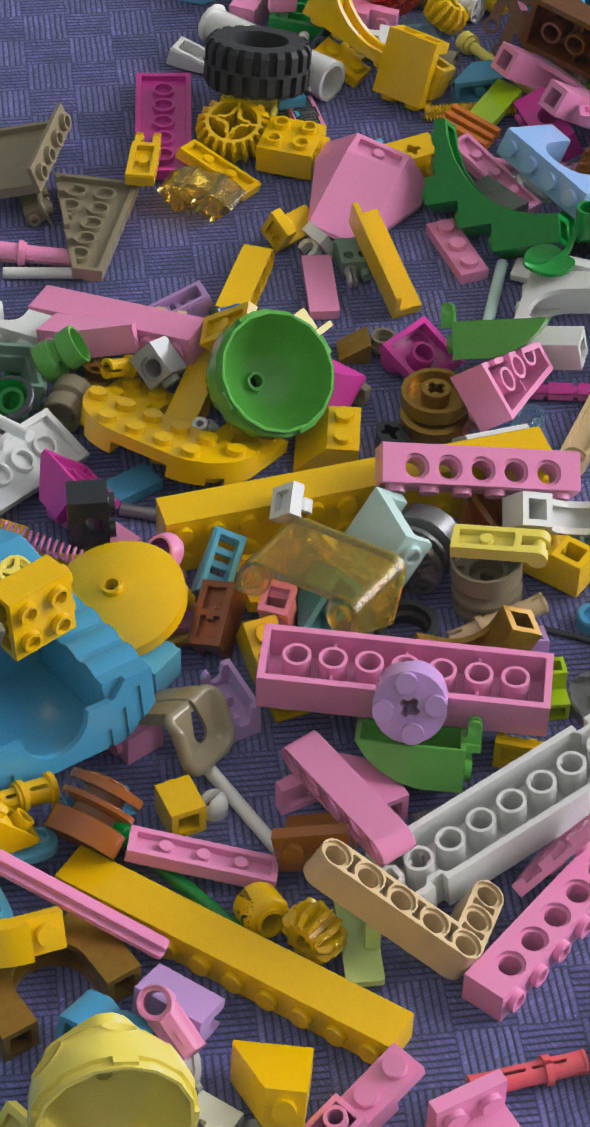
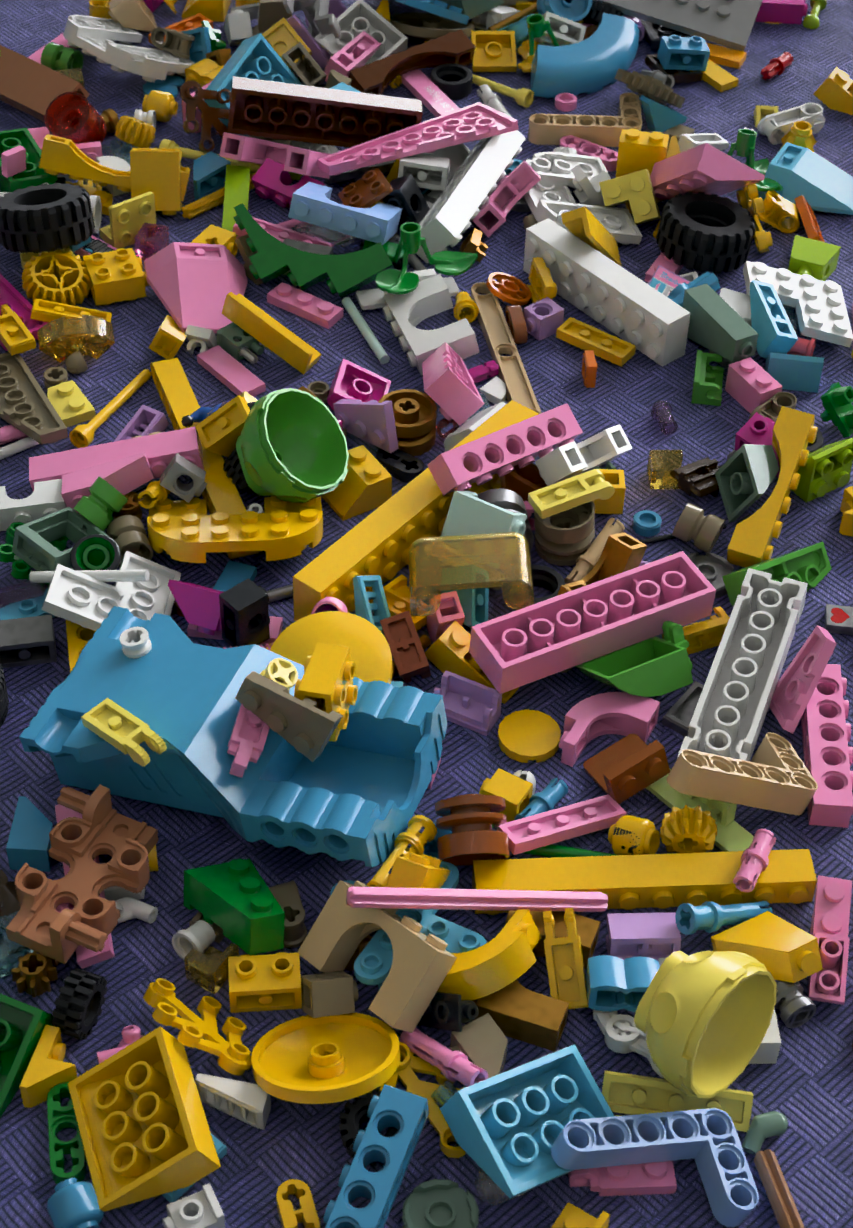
camera: 35 degrees left, 0 degrees up
(73, 974) = (565, 962): none -> yellow hinge
(126, 286) = (84, 434): none -> yellow piece
(139, 254) = (70, 403): none -> light yellow wing
(153, 224) = (55, 376): none -> dark tan bush
(172, 1024) = (663, 942): bright pink piece -> none
(174, 711) = (462, 717): dark tan piece -> none
(183, 217) = (75, 363): none -> dark tan hinge
(215, 830) = (546, 799): none -> dark azure pin
(241, 807) = (540, 774): white bar -> none
(251, 1021) = (713, 916): none -> dark azure pin
(258, 763) = (529, 736): none -> yellow tile
(289, 502) = (399, 532): white tile -> none
(339, 991) = (754, 860): none -> bright pink pin
(348, 798) = (633, 721): bright pink beam -> none
(355, 100) = (127, 220): none -> light yellow bracket
(364, 122) = (150, 240): none -> clear pink brick
(389, 390) = (369, 421): none -> lavender wing
(410, 722) = (628, 630): lavender brick -> none
(472, 124) = (224, 207): orange tile -> none
(488, 337) = (415, 351): bright green piece -> none
(564, 416) = (494, 390): none -> white tile

